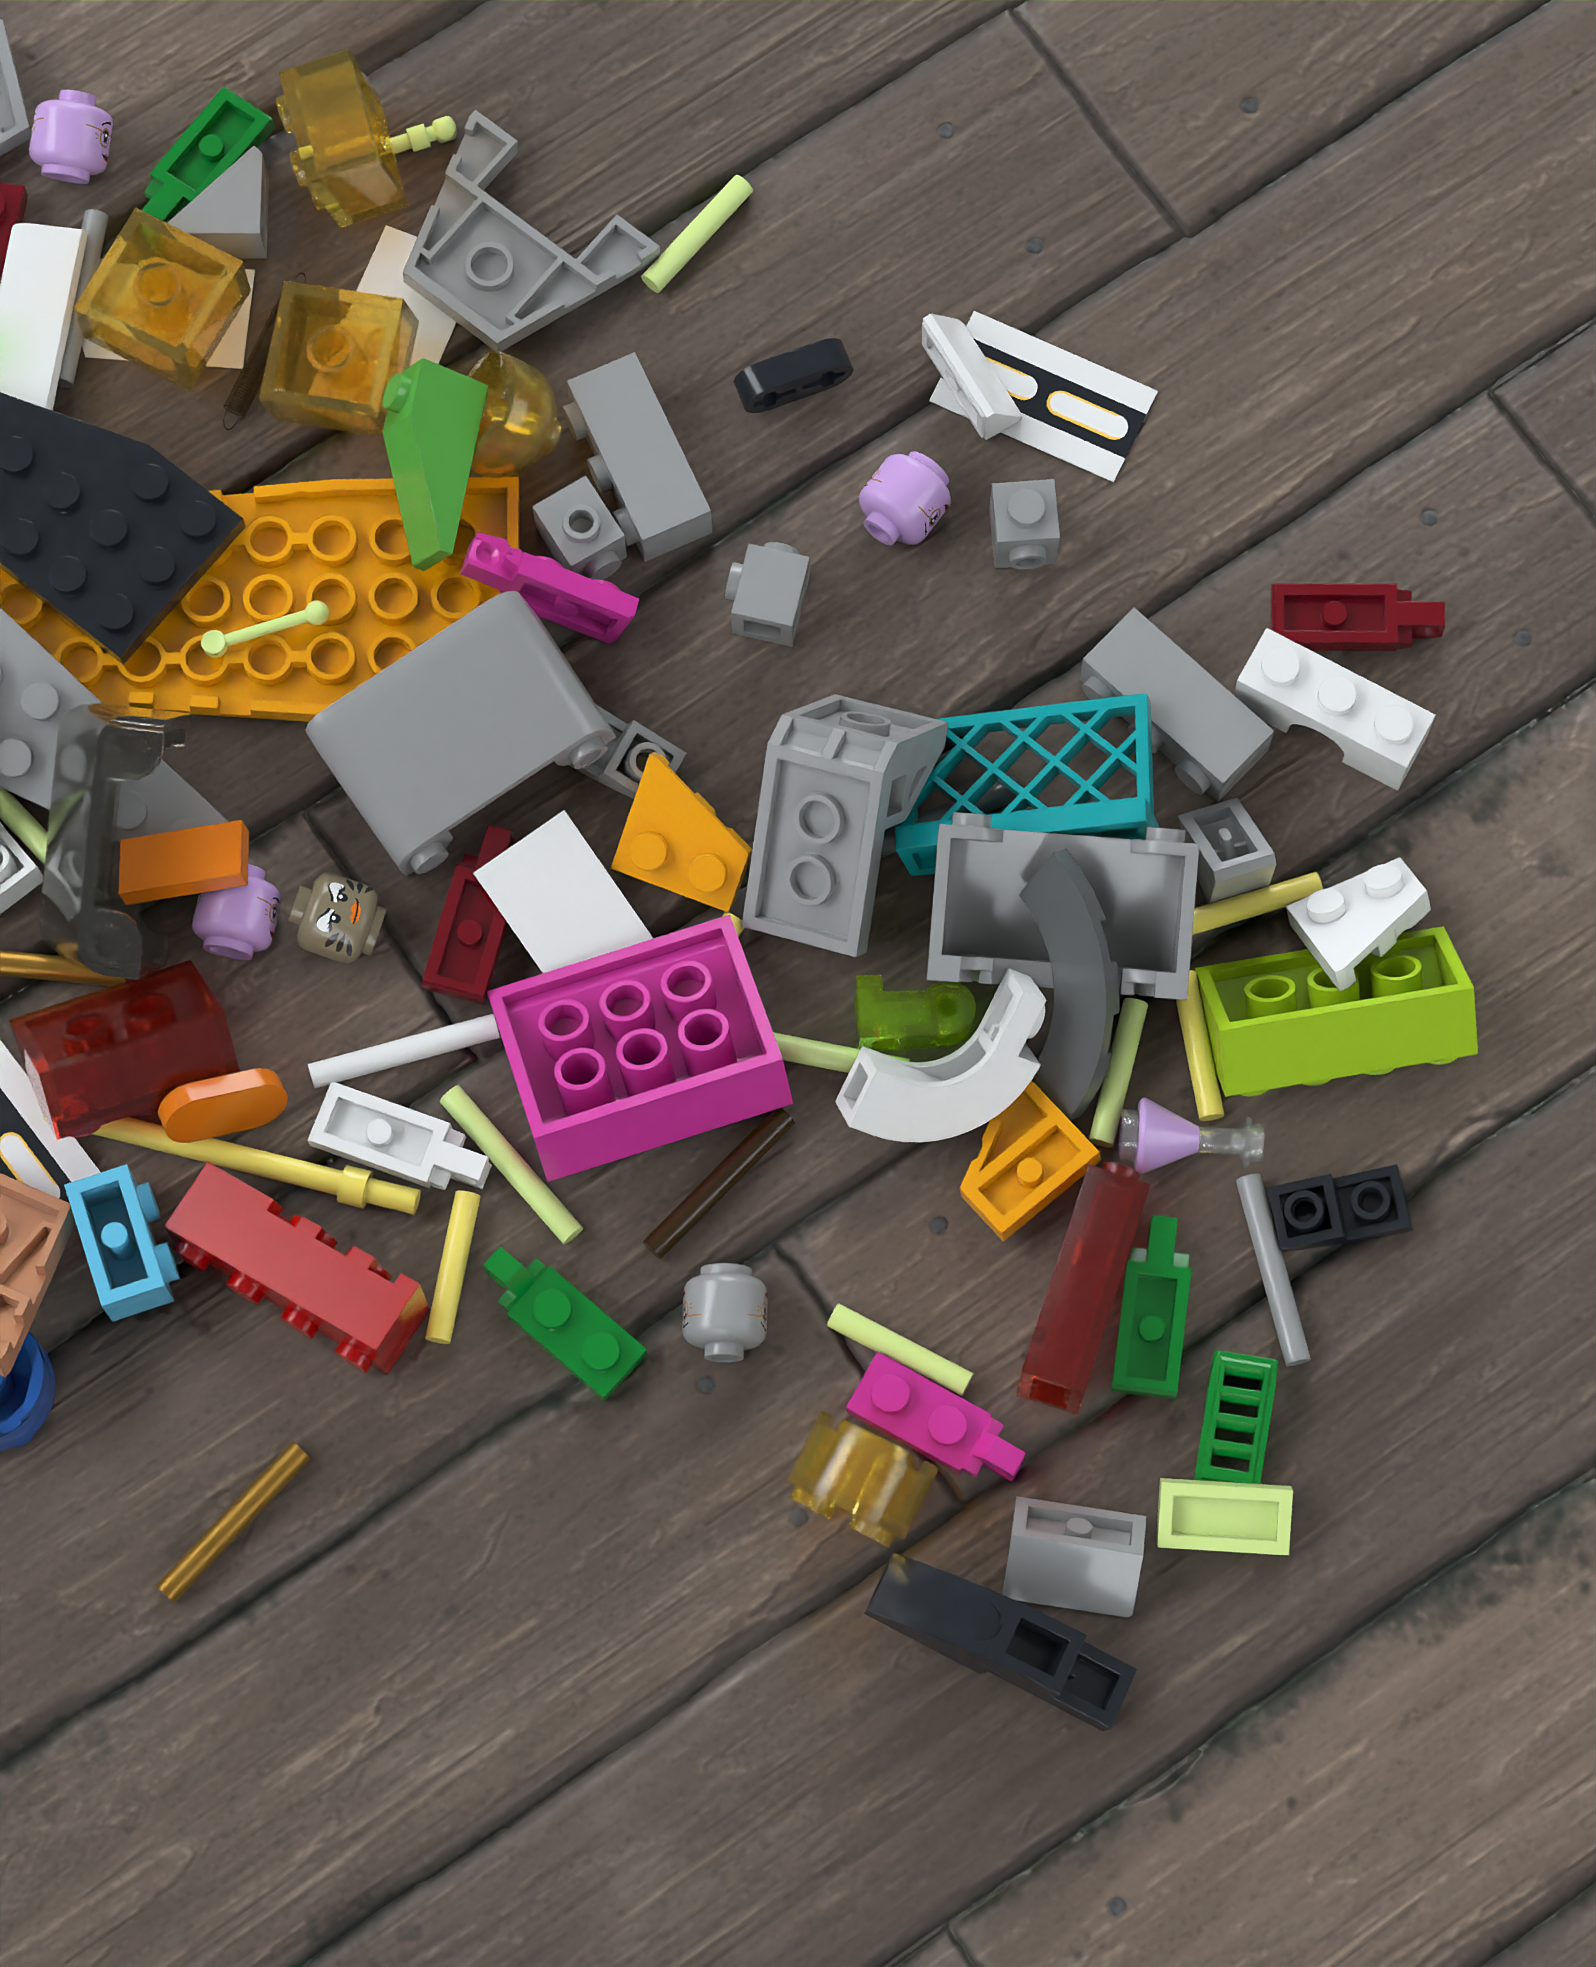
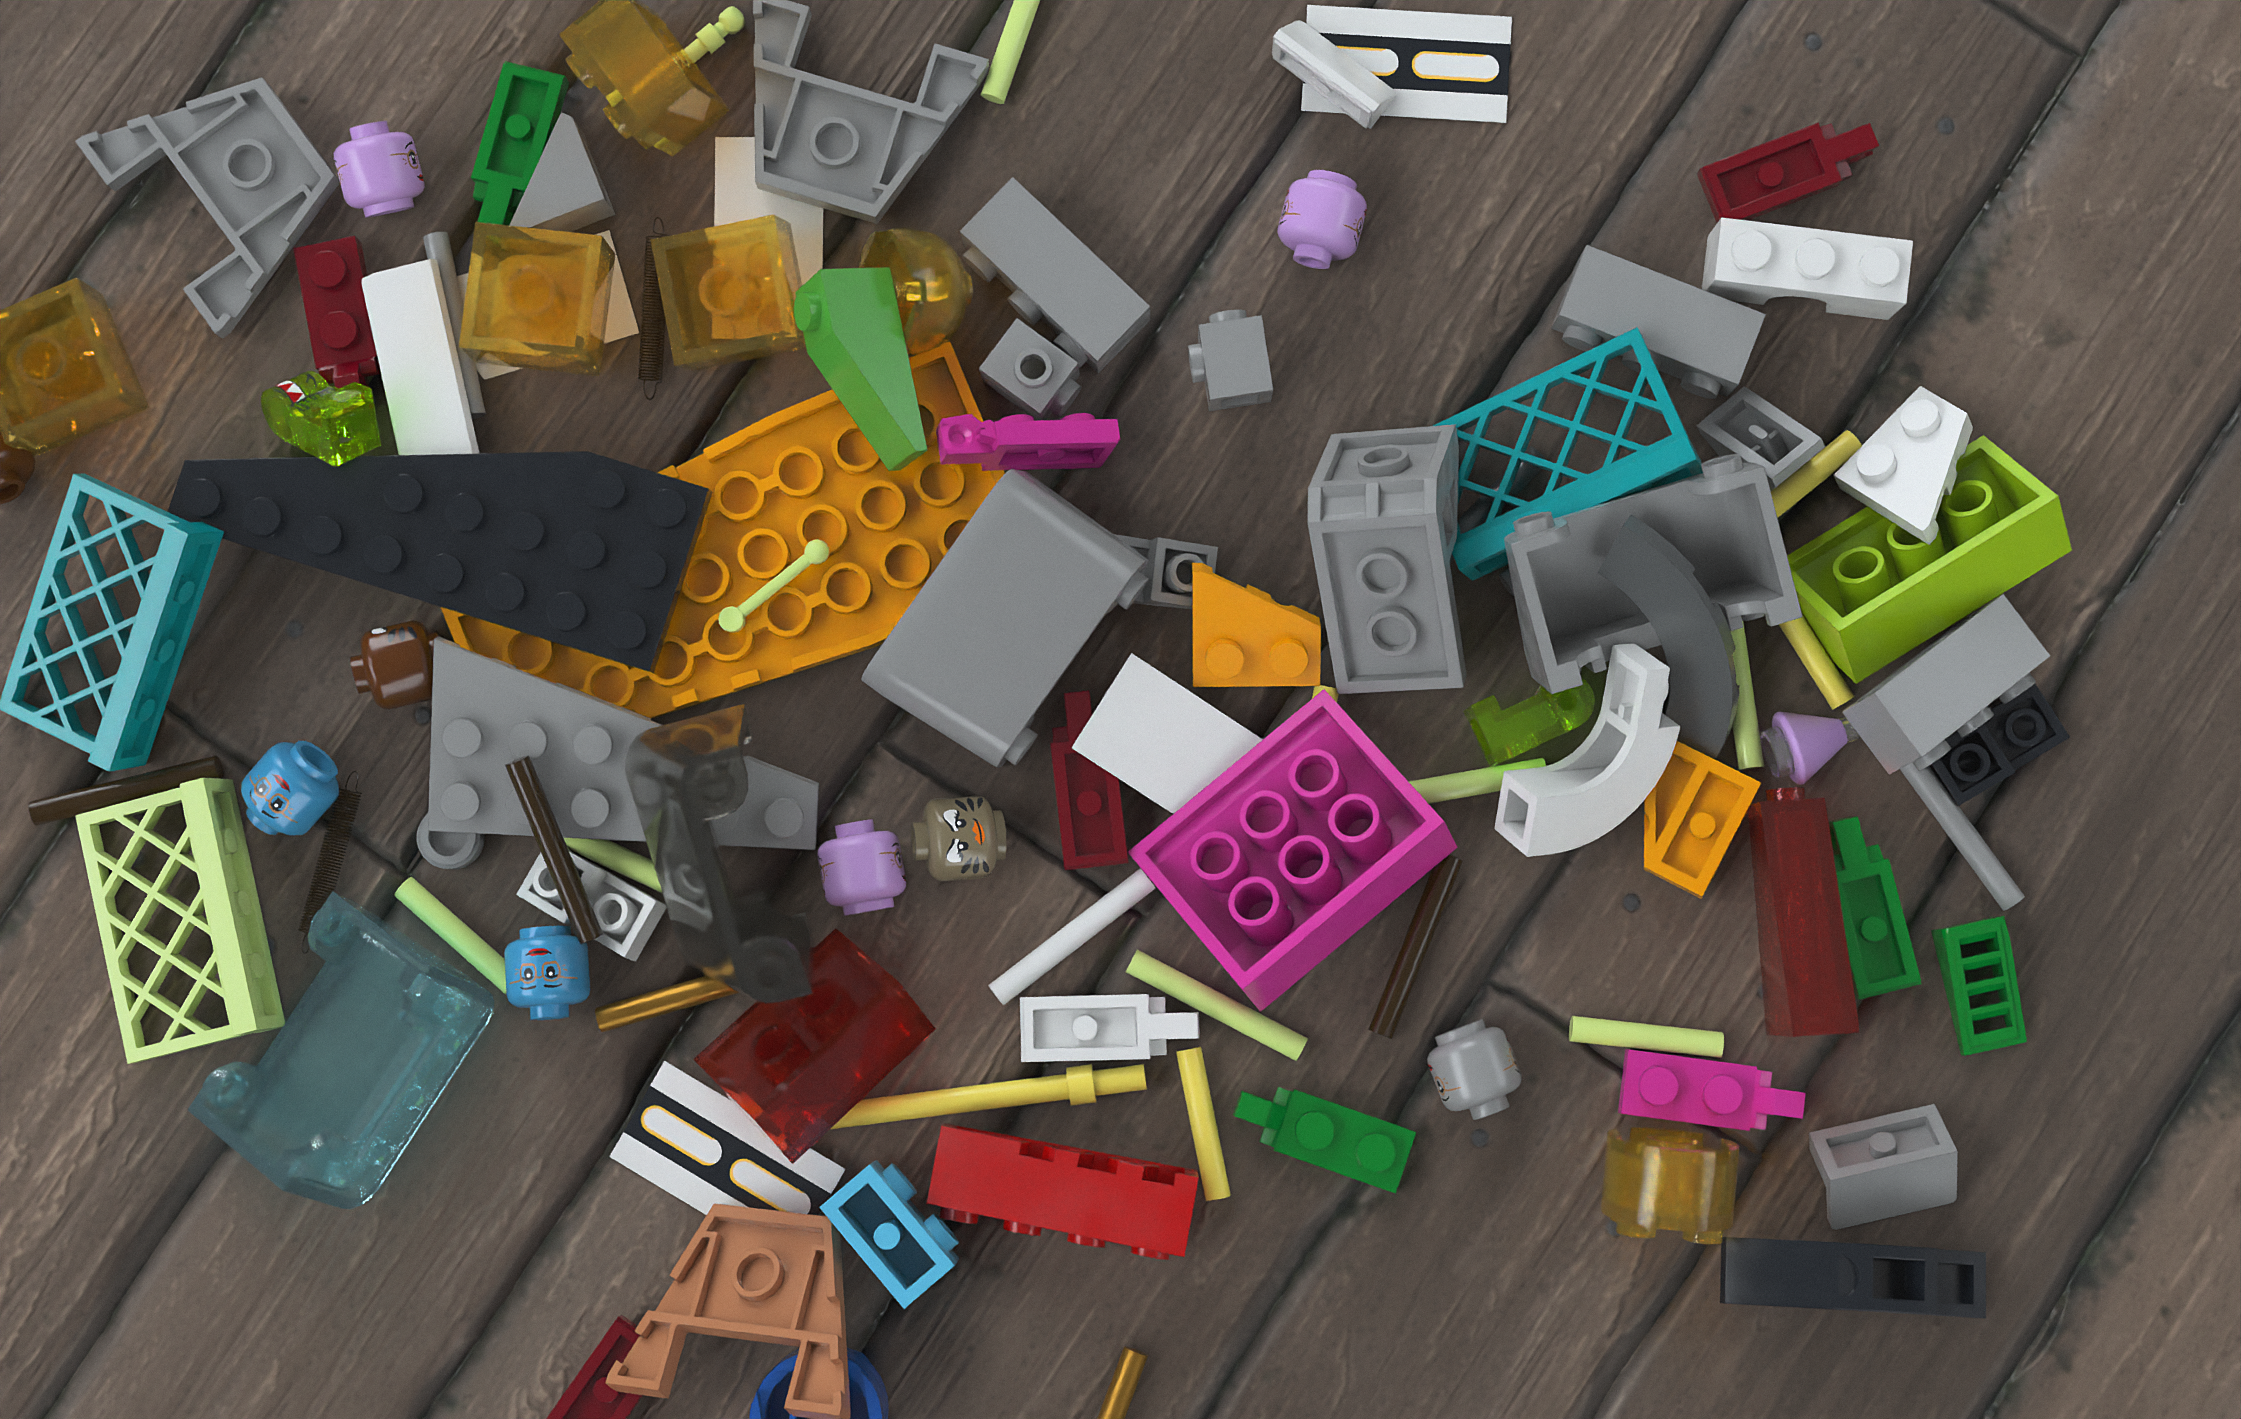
camera: 15 degrees left, 10 degrees up
(183, 862) = (796, 848): orange tile -> none
(222, 1105) = (928, 1061): orange tile -> none
(793, 375) = (1167, 138): black beam -> none
(1024, 524) = (1447, 201): light grey brick -> none
(1224, 1516) = (2006, 1076): yellowish green tile -> none
(1307, 1127) = (1948, 687): none -> light grey brick

